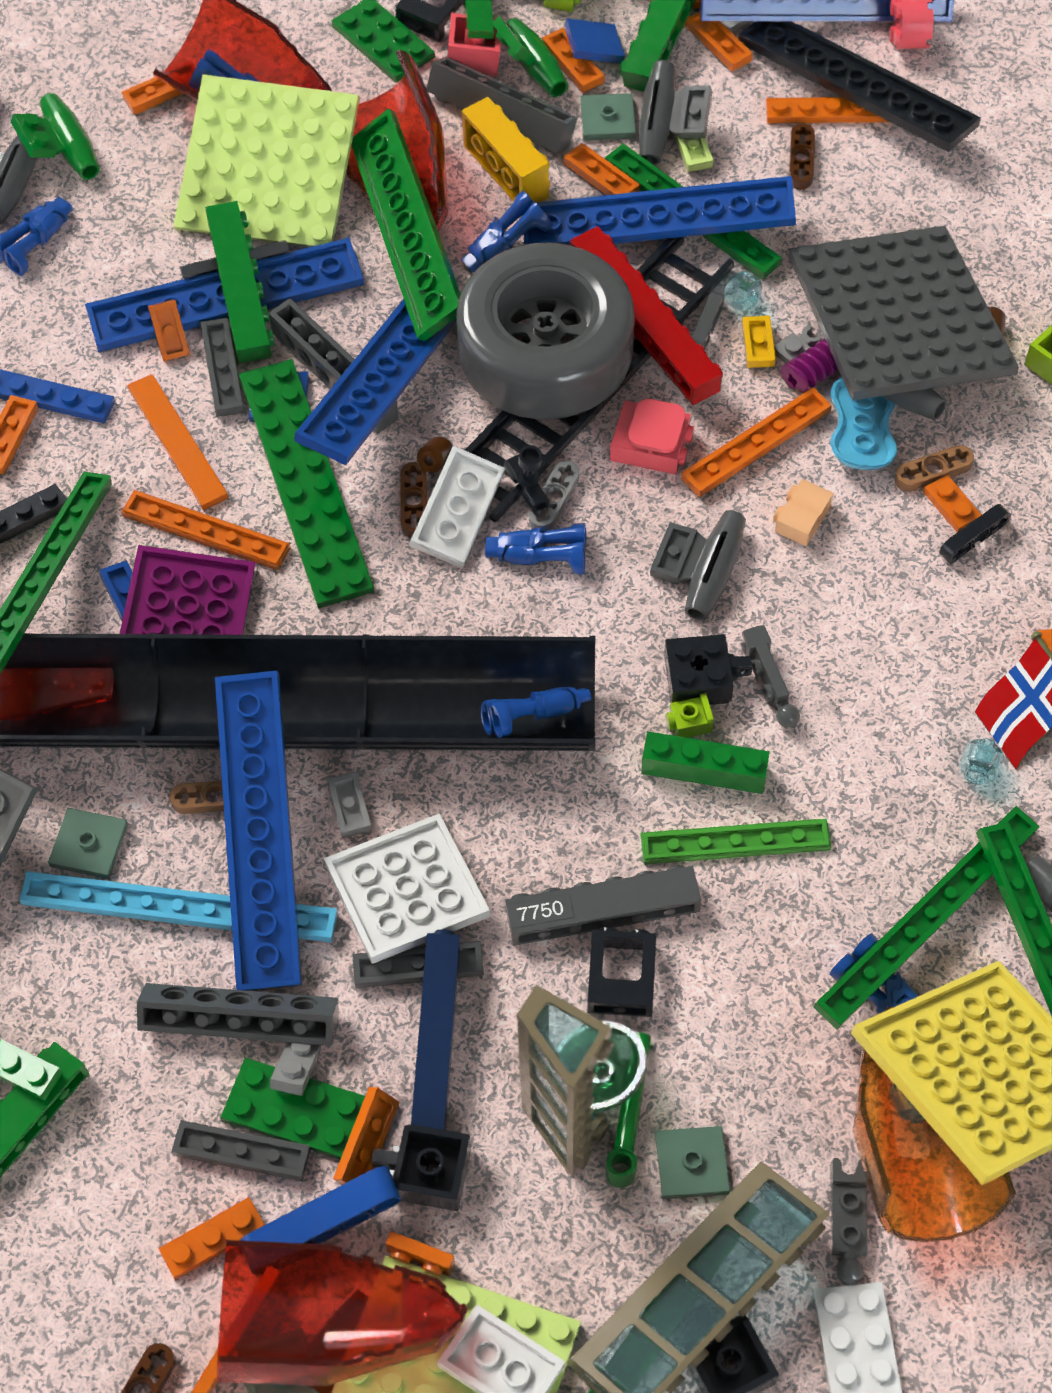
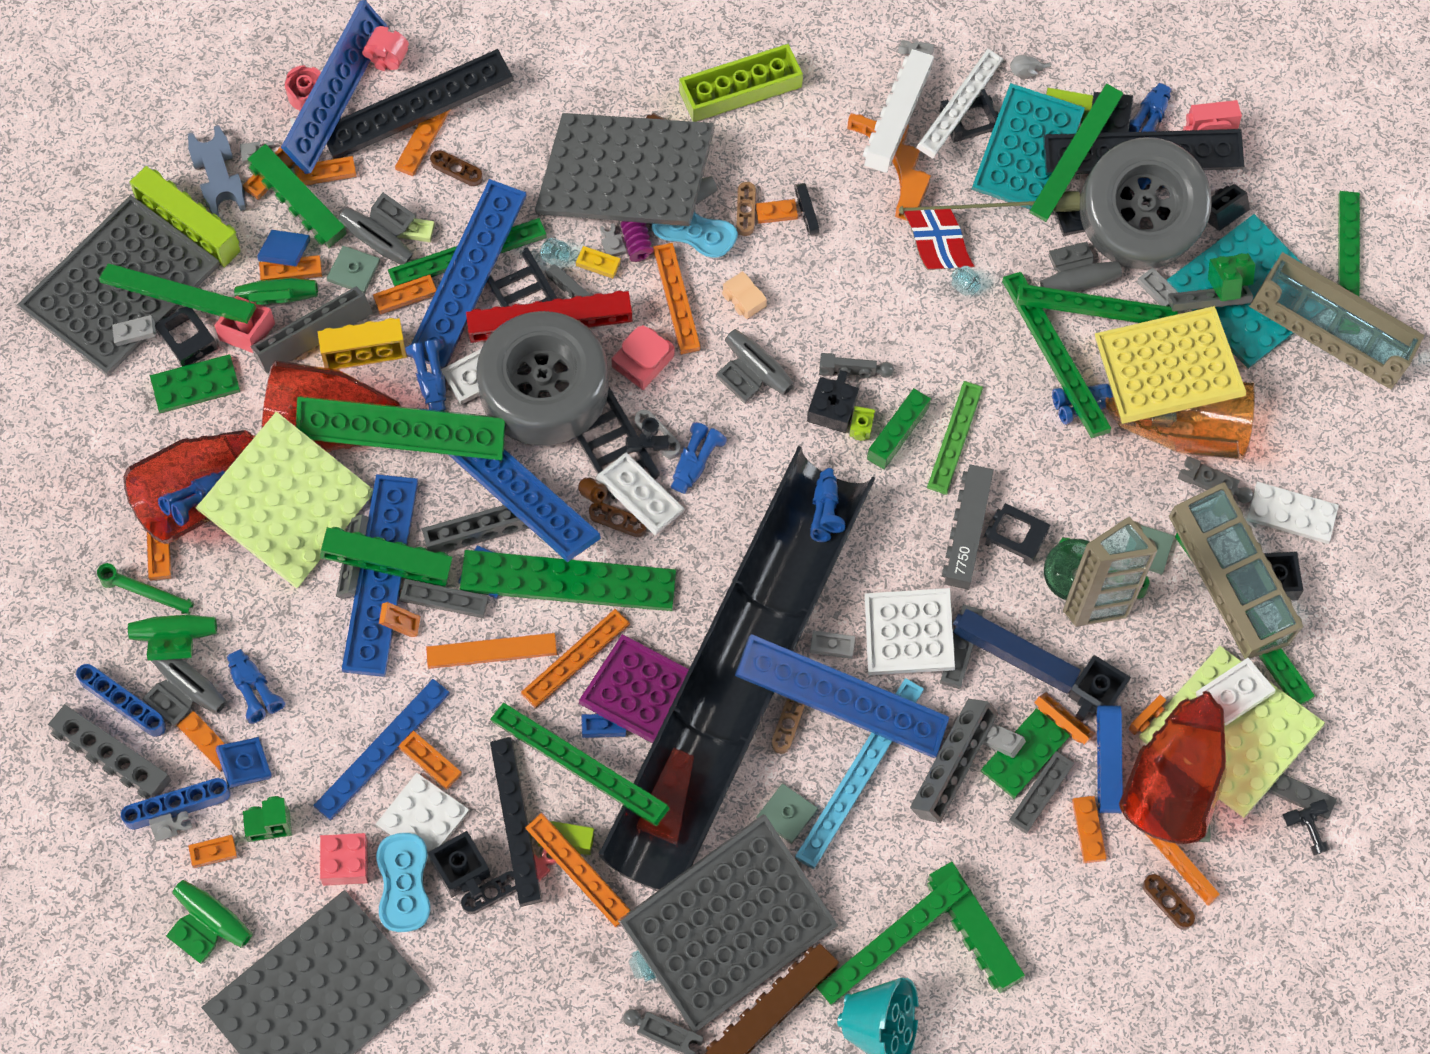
camera: 70 degrees left, 5 degrees up
(109, 64) = (142, 589): none -> green piece

